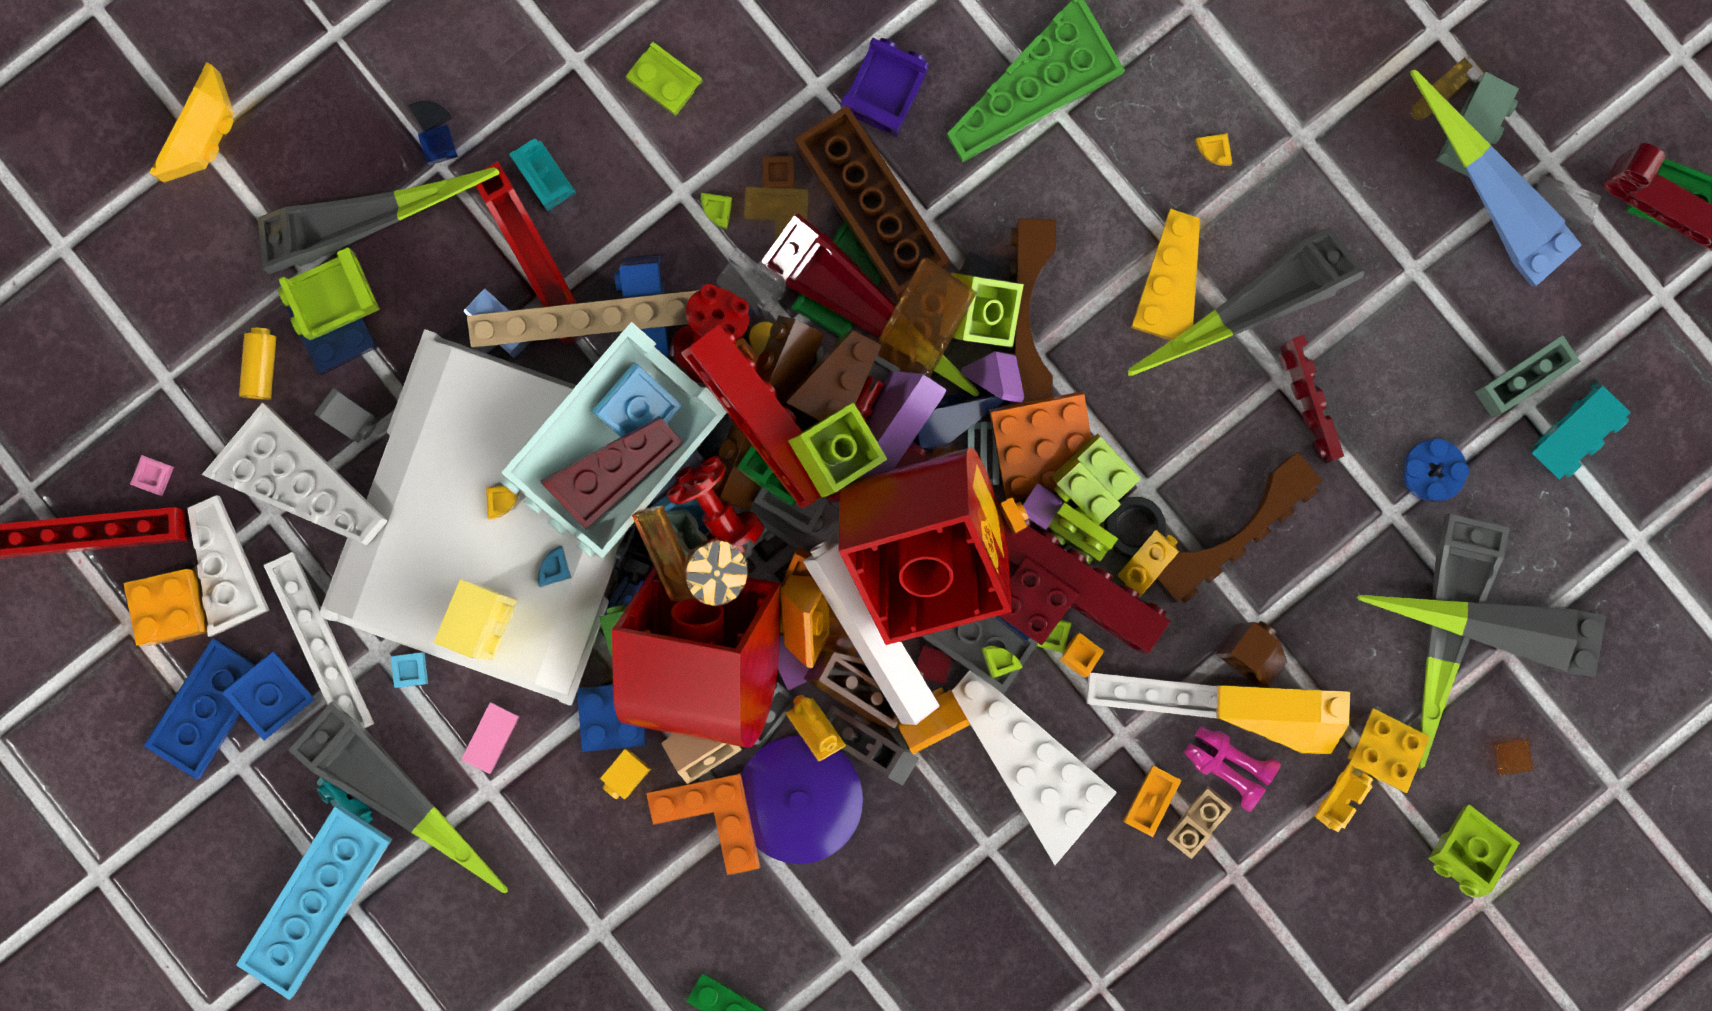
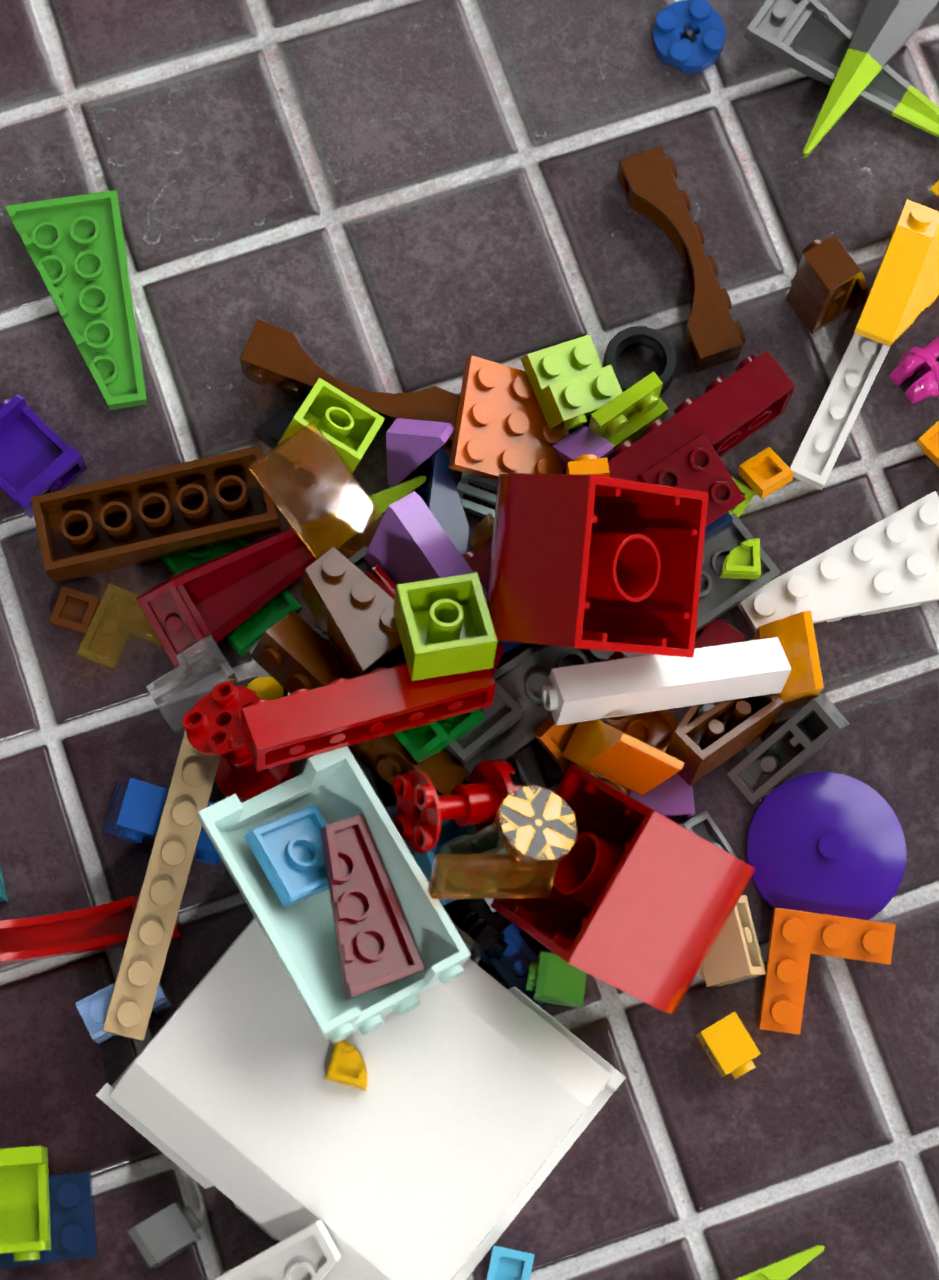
camera: 70 degrees left, 10 degrees down
(475, 620) = (494, 1131): light yellow brick -> none
(490, 738) = (628, 1199): bright pink tile -> none
(554, 568) = (455, 1030): dark azure tile -> none
(600, 724) = (653, 1043): blue plate -> none
(717, 209) = (87, 699): lime tile -> none
(814, 727) = (749, 800): yellow hinge -> none
(1149, 562) = (687, 357): yellow hinge -> none
(1170, 287) = (381, 233): yellow wing -> none
(1215, 149) = (244, 131): yellow tile -> none
(1297, 280) = (426, 93): dark grey plate -> none
(1312, 398) = (563, 127): dark red wing -> none

